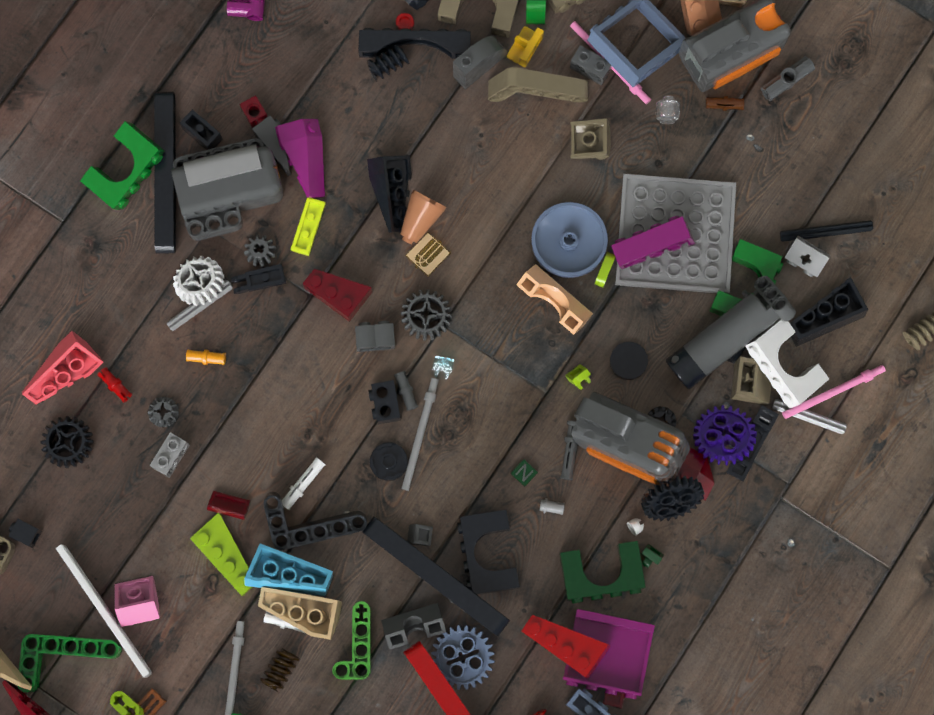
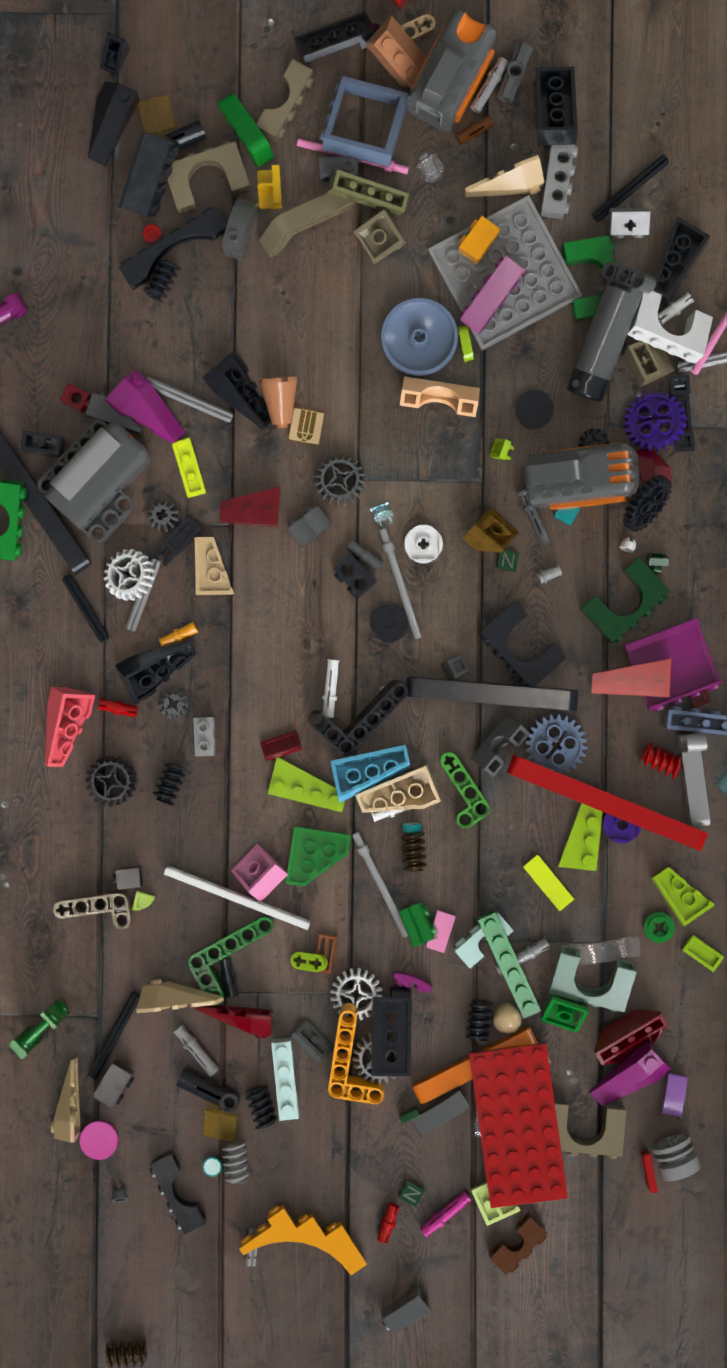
camera: 30 degrees left, 10 degrees up
(23, 561) = (142, 900): none -> lime tile
(50, 675) = (228, 977): none -> black pin
(113, 475) = (169, 783): none -> black piece
(145, 284) = (85, 608): none -> black axle
(160, 370) = (147, 670): none -> black wedge
(194, 616) = (314, 853): none -> green plate
(268, 319) = (209, 569): none -> tan wing
(291, 647) = (411, 827): none -> teal tile
(346, 172) = (191, 400): none -> light grey axle
(456, 403) = (430, 552): none -> white plate
(524, 439) = (490, 533): none -> pearl gold slope
(599, 467) = (566, 515): none -> teal tile
(601, 97) = (367, 192): none -> olive brick
(670, 192) = (479, 239): none -> light orange brick
(737, 166) = (521, 180): none -> tan wedge
(761, 75) = (493, 77): none -> light grey pin
(787, 160) = (557, 208): none -> light grey brick
(802, 352) = (674, 308): none -> white pin
(803, 124) = (556, 106): none -> black brick

